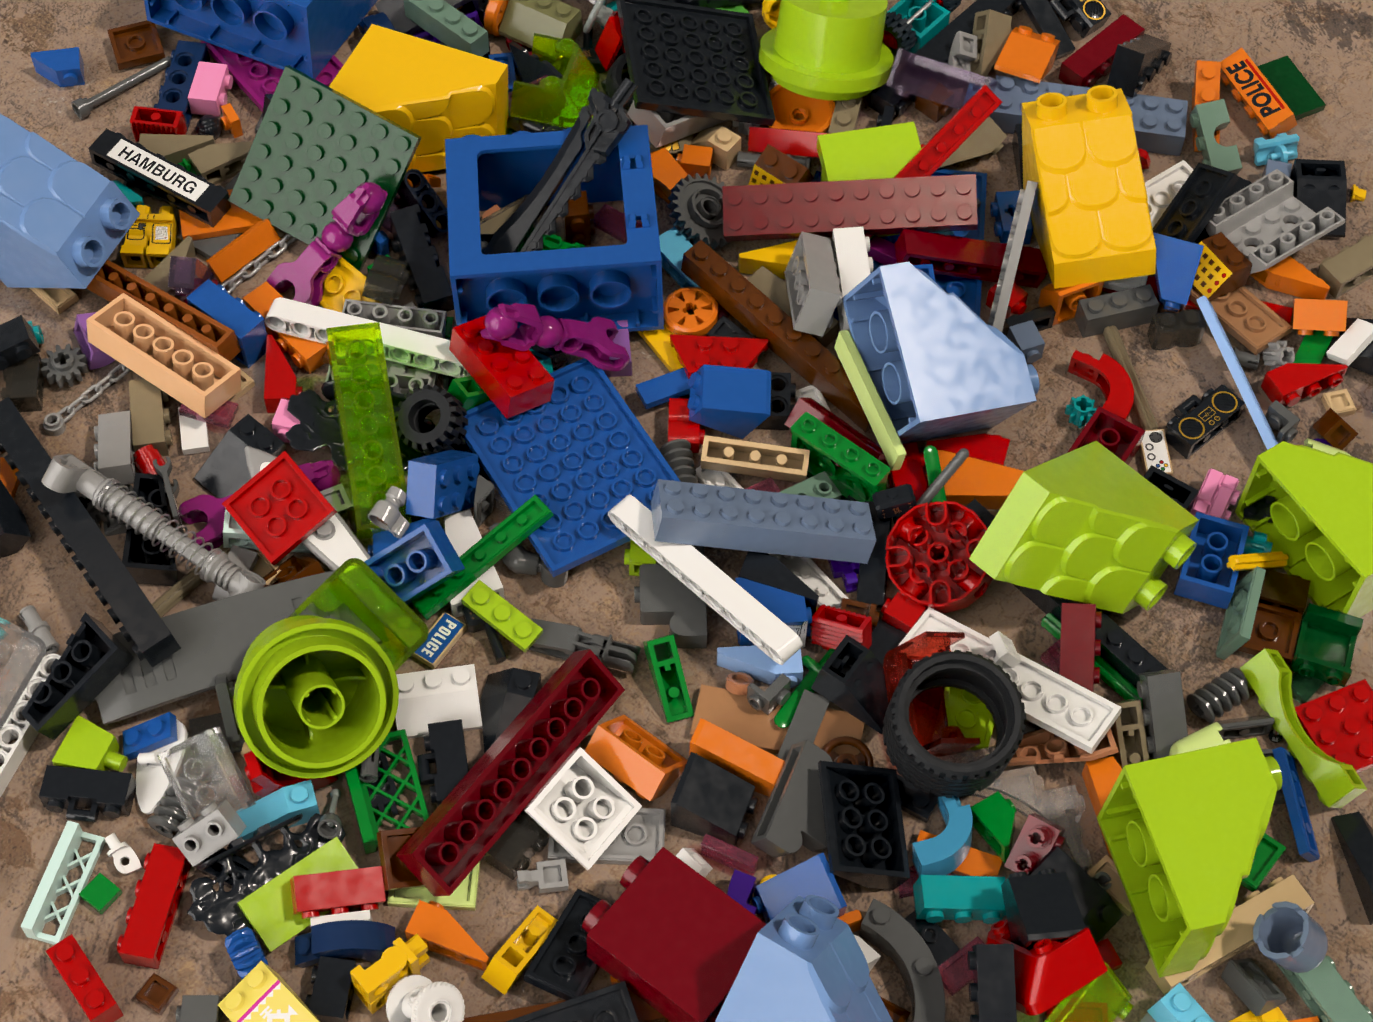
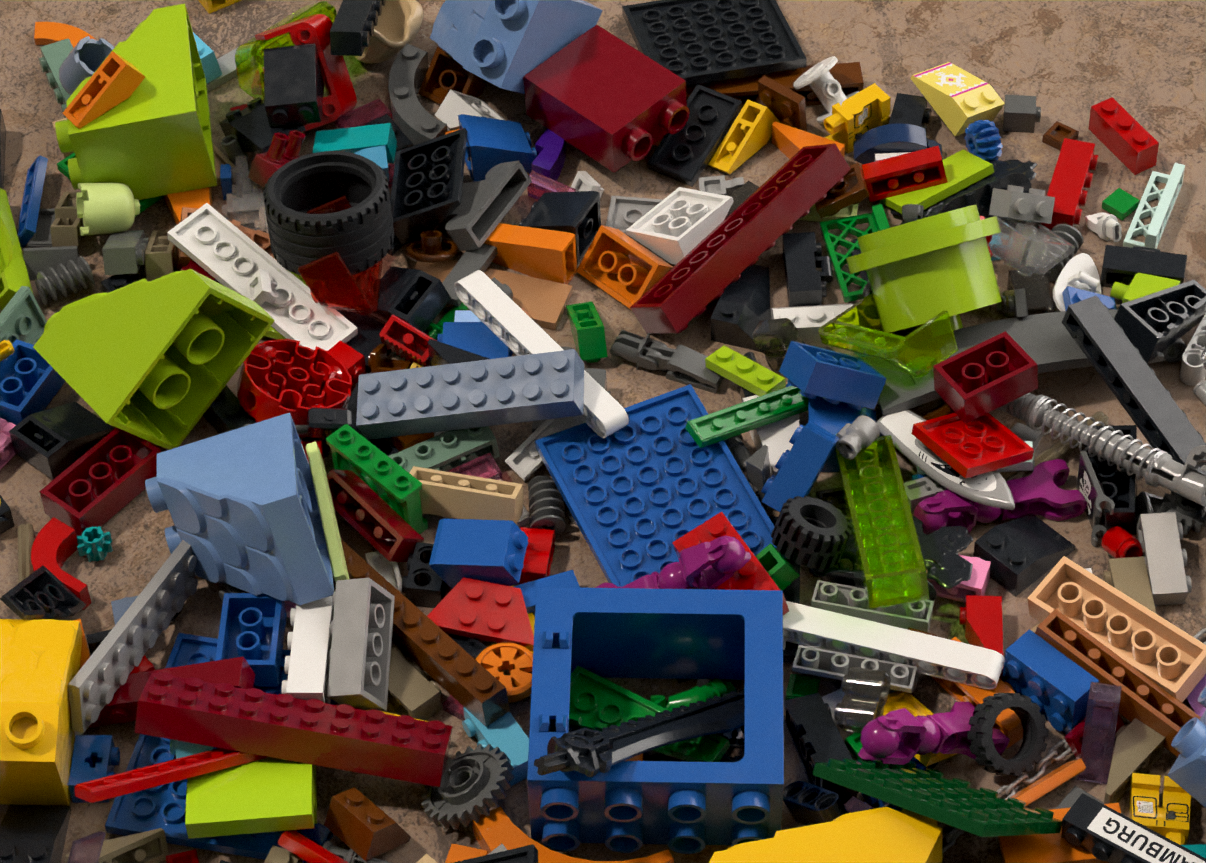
camera: 170 degrees left, 10 degrees down
(261, 555) = (985, 377): none -> dark red brick
(267, 266) = (1033, 734): none -> black tyre
(465, 643) = (773, 340): none -> clear smoke brick
(477, 984) = (783, 103): none -> reddish brown plate
(1092, 842) = (225, 177): none -> blue tile
(1103, 311) = (42, 597): none -> black wedge
(1155, 451) = (30, 505): tile -> none
(1232, 776) = (107, 88): none -> orange slope

